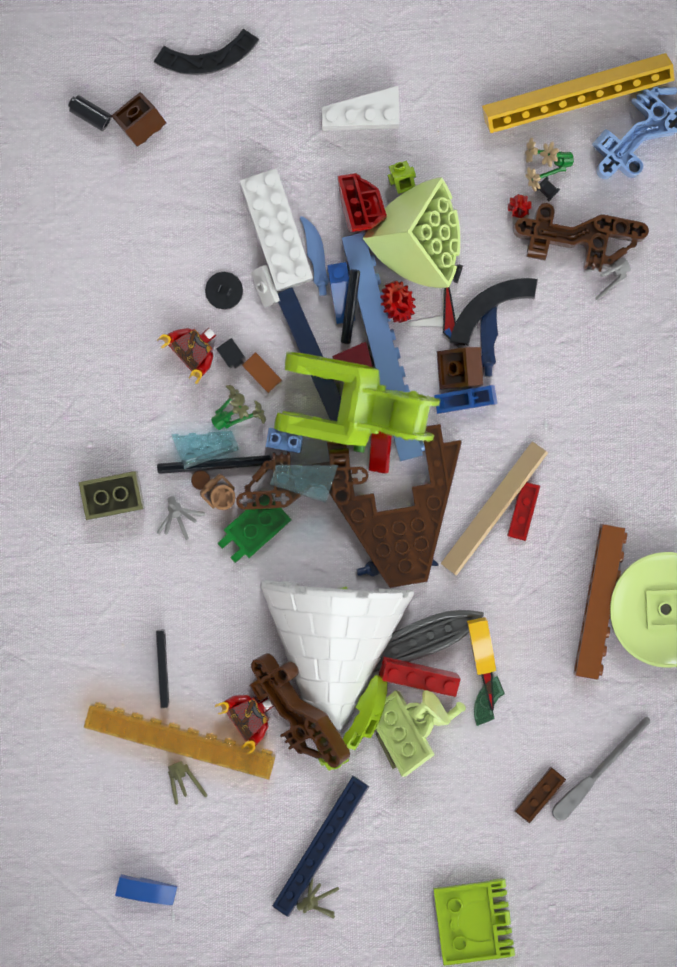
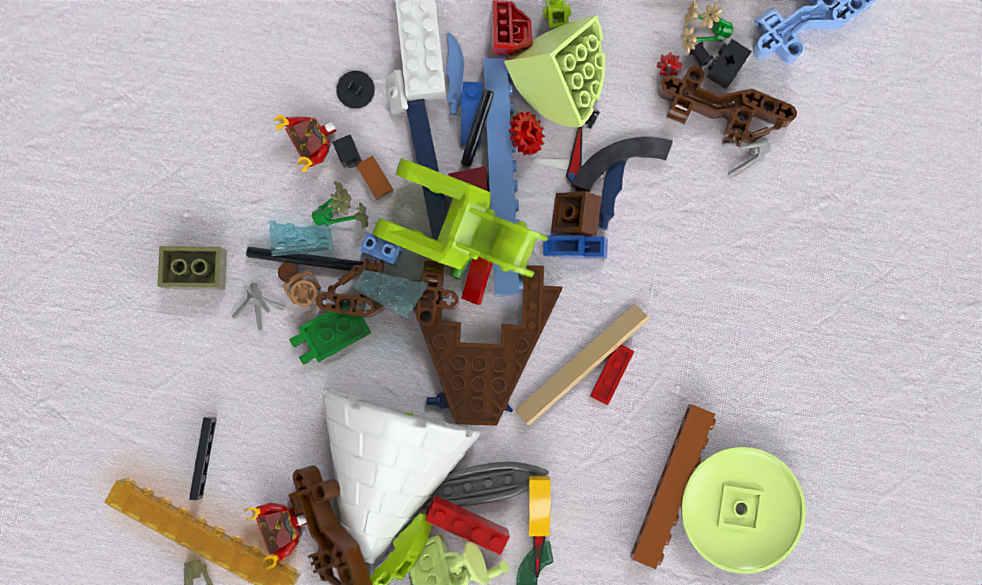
camera: 25 degrees right, 5 degrees down
(583, 184) = (736, 56): none -> black brick

